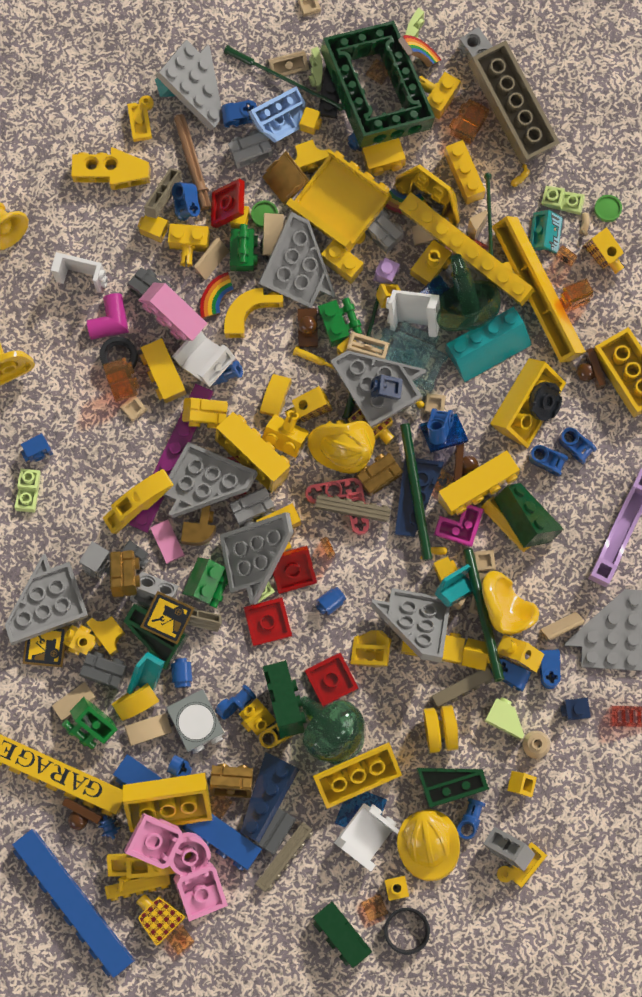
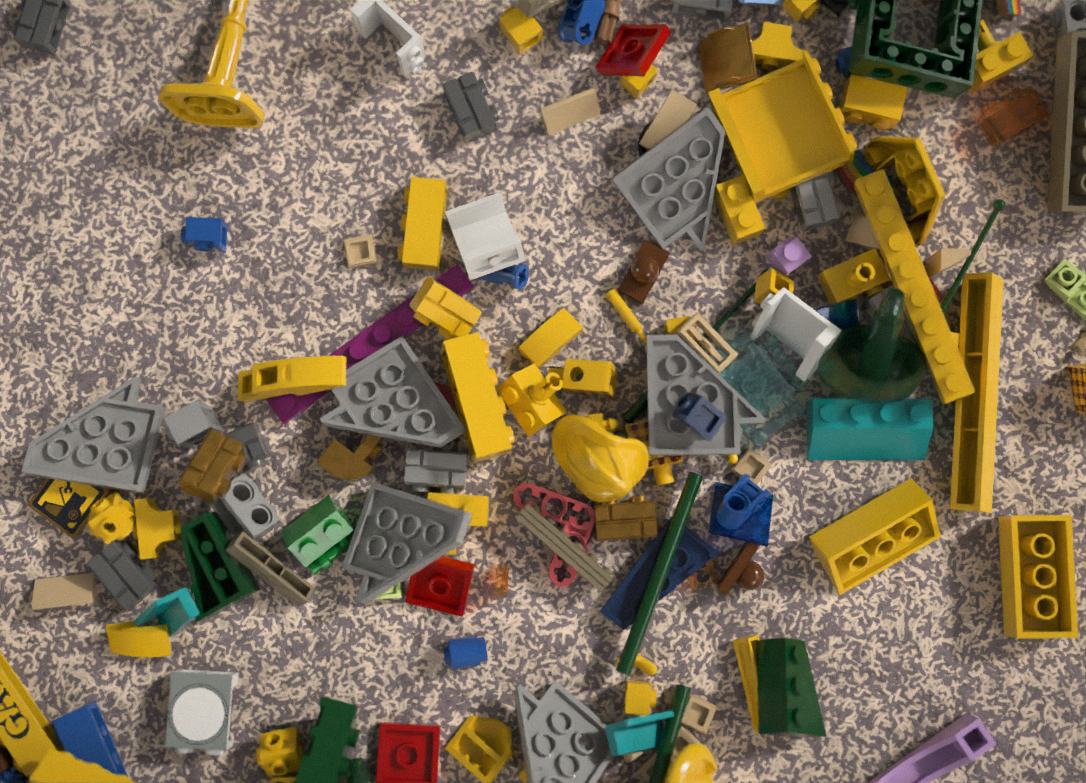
camera: 25 degrees right, 5 degrees up
(27, 490) = (167, 280): yellowish green slope -> none
(92, 720) = (63, 636): green brick -> none
(114, 321) = (398, 125): dark pink brick -> none
(118, 341) = (366, 154): black tyre -> none
(120, 379) = (361, 204): clear orange brick -> none
(148, 729) = (136, 684): tan slope -> none
(167, 541) = (303, 450): bright pink tile -> none
(167, 617) = (234, 559): piece -> none
(172, 312) = (476, 154): bright pink brick -> none
(176, 764) = (135, 761): blue connector -> none
(181, 673) = (220, 635): blue brick -> none
(188, 239) = (555, 70): yellow brick -> none
(214, 294) = (548, 160): tile -> none
(239, 701) = (275, 715): blue connector -> none
(242, 249) = (618, 120): green brick -> none
(244, 305) = (577, 197): yellow arch -> none
(259, 209) = (672, 80): bright green piece -> none
(267, 621) = (370, 631): red tile -> none
(334, 323) = (681, 287): green brick -> none
(462, 531) = (690, 659): dark pink brick -> none
(464, 172) = (967, 181): yellow brick -> none
(478, 484) = (748, 613): yellow slope -> none
(519, 179) = (1035, 230): yellow piece -> none
(545, 401) = (900, 549): black tile -> none
(546, 231) = (1030, 319): teal panel -> none
(549, 460) = (861, 631): blue piece -> none
(566, 256) = (1039, 369): clear orange tile -> none
(576, 295) = (1024, 430): clear orange brick -> none
(578, 445) = (910, 635): blue piece -> none
(591, 370) = (986, 541): reddish brown tile -> none

